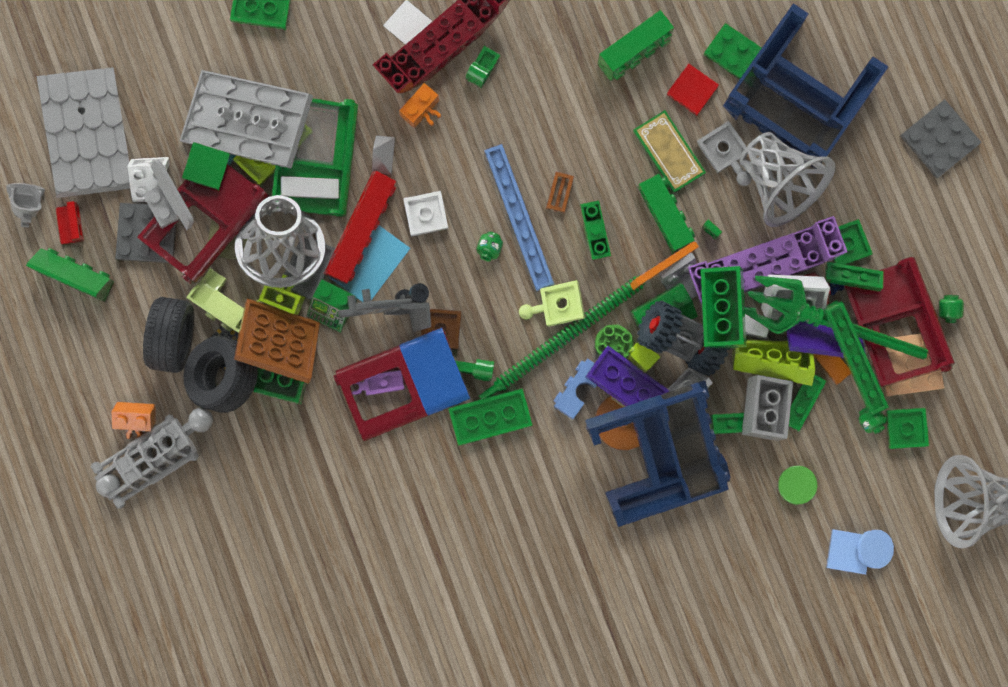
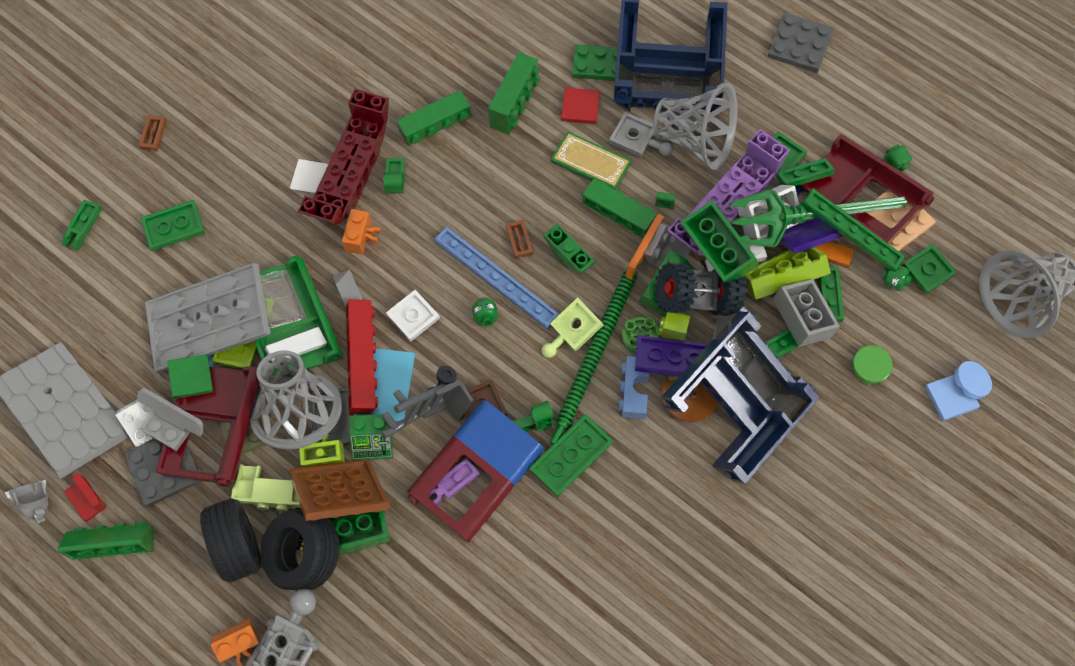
camera: 30 degrees left, 15 degrees down
(550, 28) = (434, 118): none -> green brick

